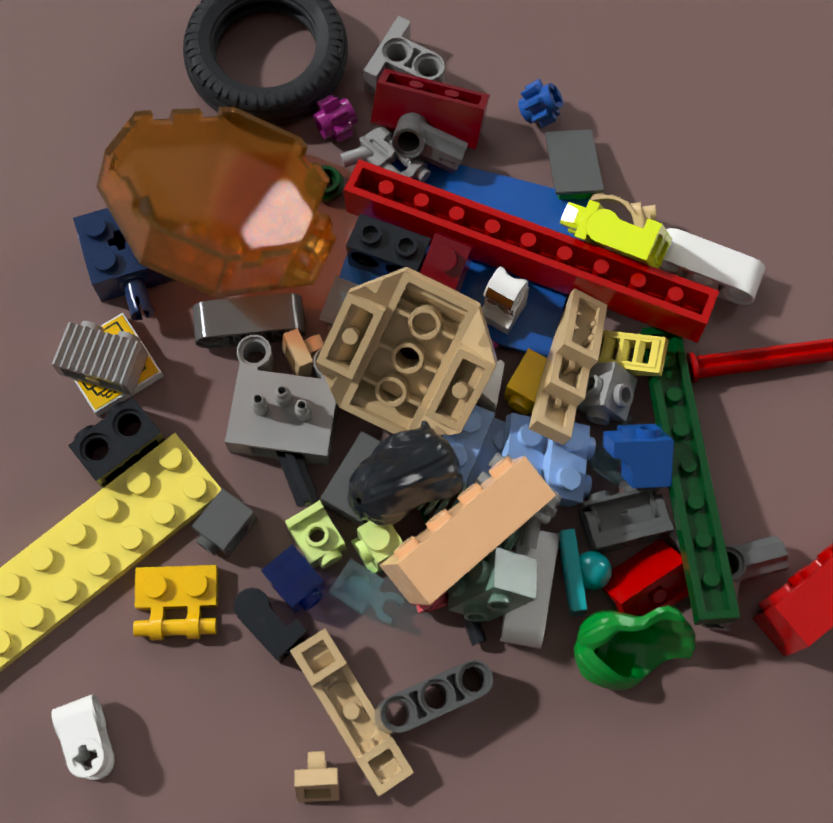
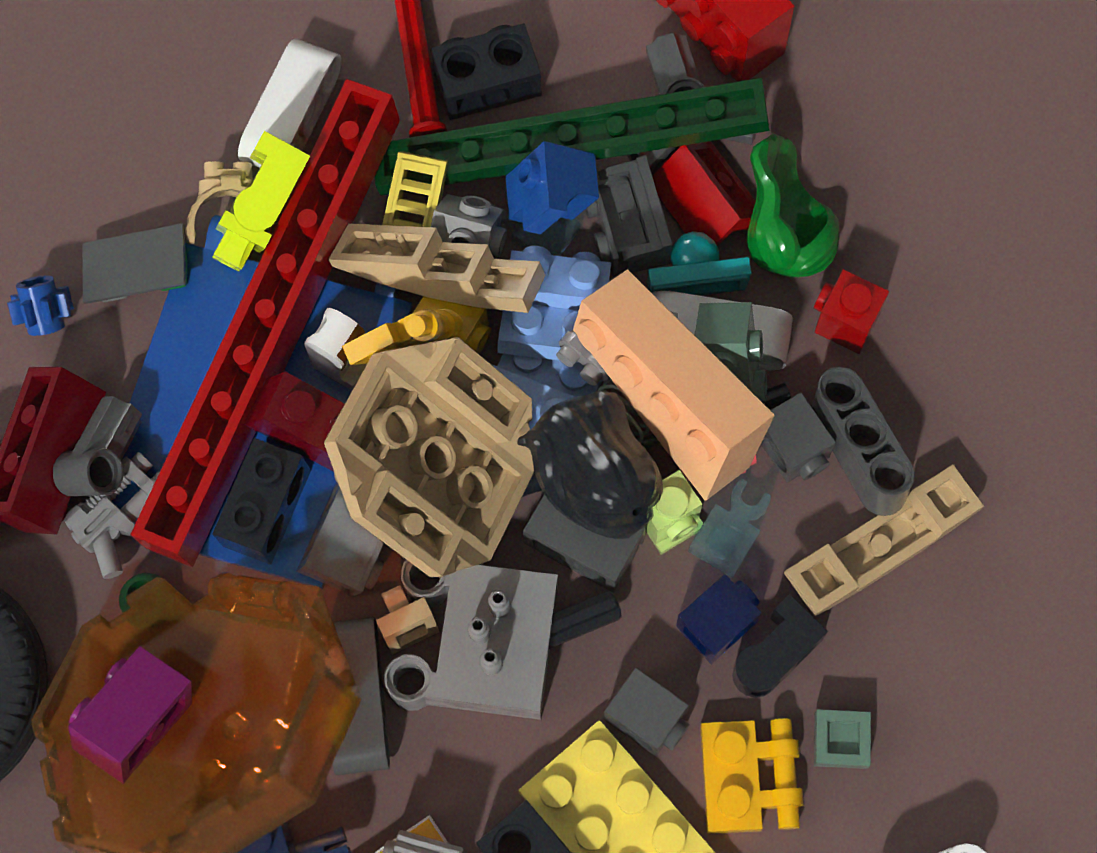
camera: 85 degrees left, 0 degrees up
(197, 671) = (842, 739): none -> sand green plate
(236, 169) = (129, 713): none -> magenta brick
(308, 521) = (655, 610): yellowish green brick -> none
(317, 781) = (968, 581): tan tile -> none
(335, 118) = (46, 584): magenta gear -> none
(437, 645) = (798, 440): none -> dark grey brick
(505, 338) = (409, 331): none -> yellow plate
(546, 693) = (849, 310): none -> red brick
(737, 411) = (490, 83): none -> black brick

